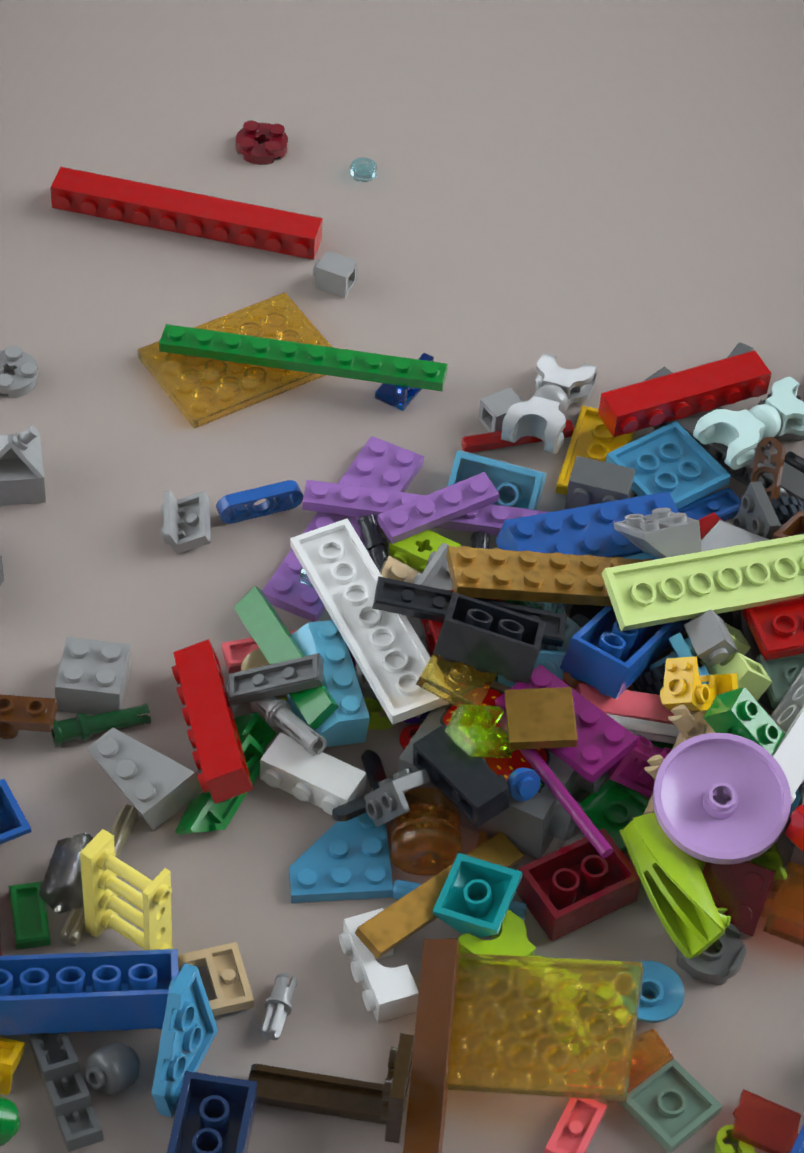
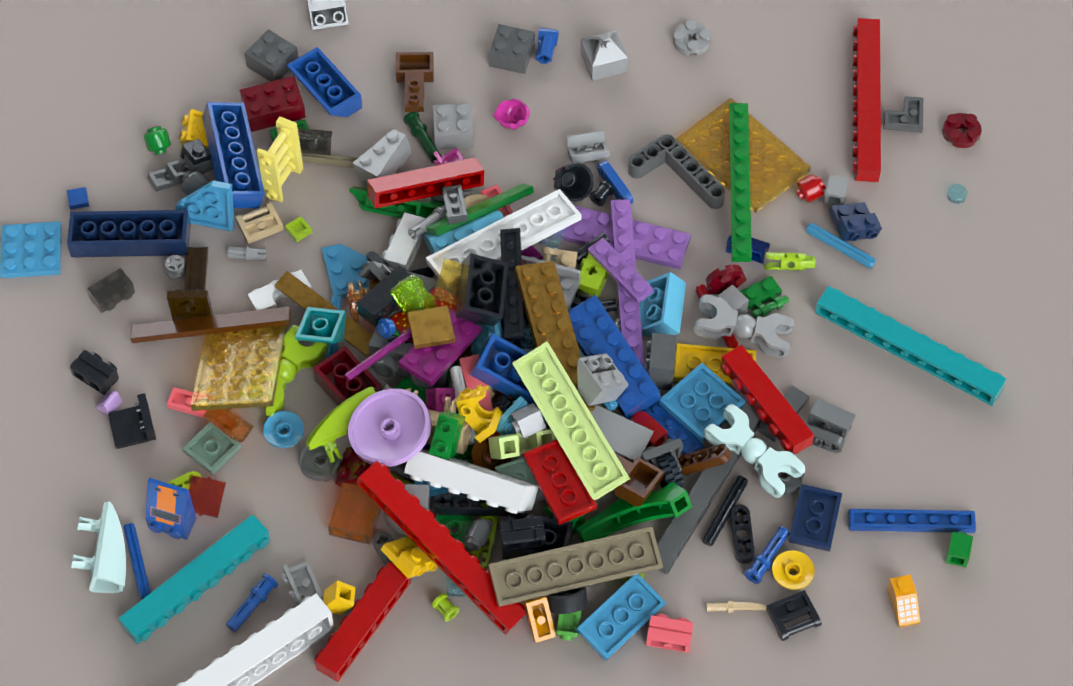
camera: 85 degrees right, 10 degrees up
(43, 1054) = (195, 152): none -> black bracket
(94, 597) = (512, 113): none -> dark pink hair
(161, 693) = (452, 156): none -> dark pink bracket
(223, 428) = (670, 151): none -> dark grey beam
(229, 181) = (907, 120): none -> dark grey plate
(245, 923) = (298, 229): none -> lime plate
(249, 544) = (574, 181): none -> black helmet
(273, 520) = (602, 192): none -> black bush
(287, 1115) = (176, 262): none -> light grey wheel
(325, 297) = (810, 188): none -> red head
(398, 265) = (855, 221): none -> dark blue plate
(422, 291) = (840, 245): none -> dark azure axle
(443, 339) = (798, 262): none -> lime hinge
(469, 402) = (719, 280): none -> dark red plate
(484, 380) = (763, 292): none -> green plate
(597, 258) = (910, 345): none -> teal brick
(706, 346) = (831, 418): none -> hinge

